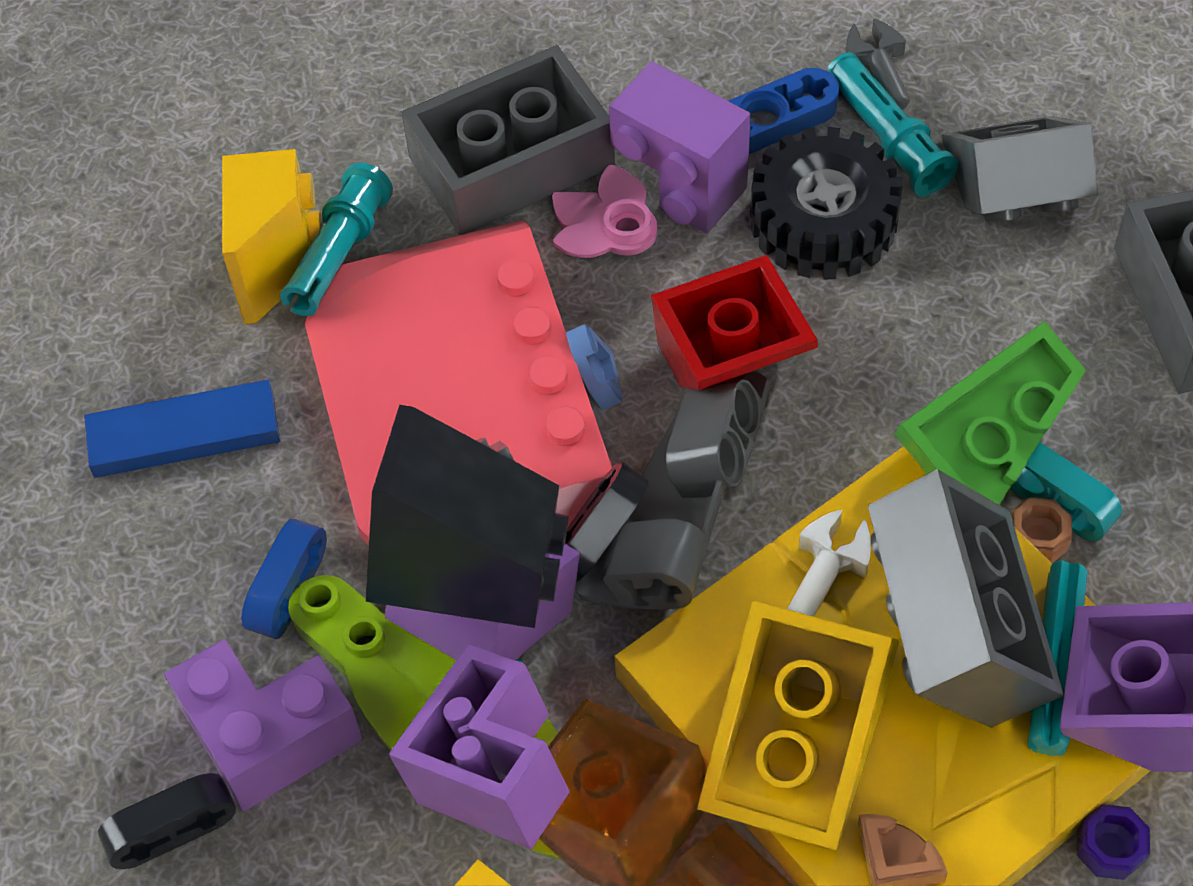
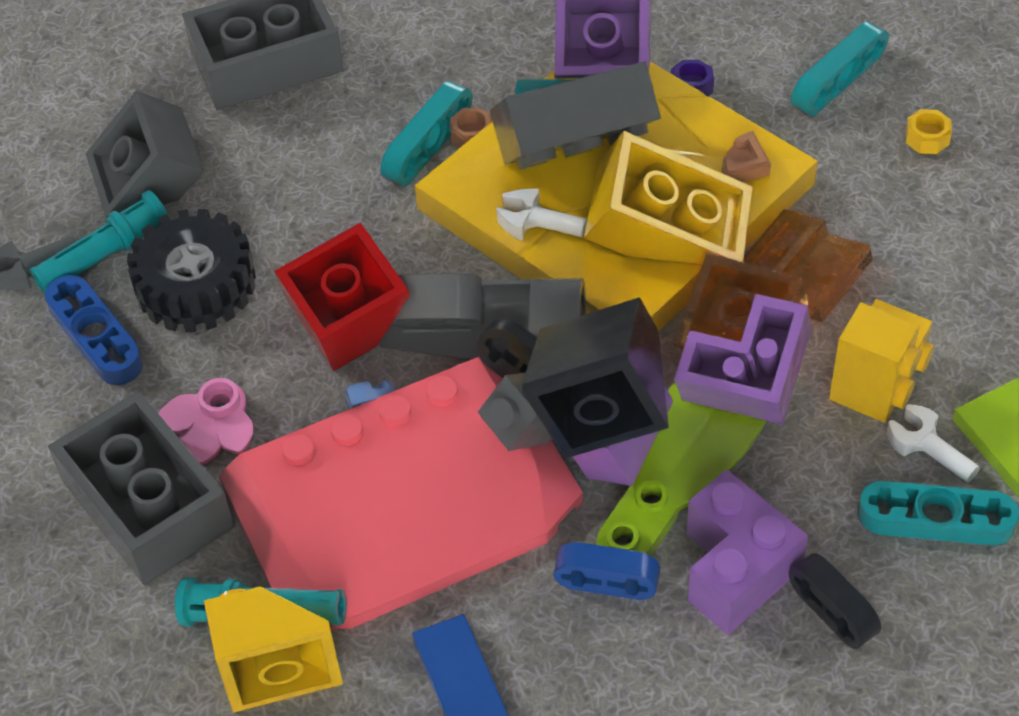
camera: 100 degrees left, 5 degrees down
(689, 138) = (155, 343): medium lavender brick -> none
(995, 415) = (415, 140): bright green wing -> none

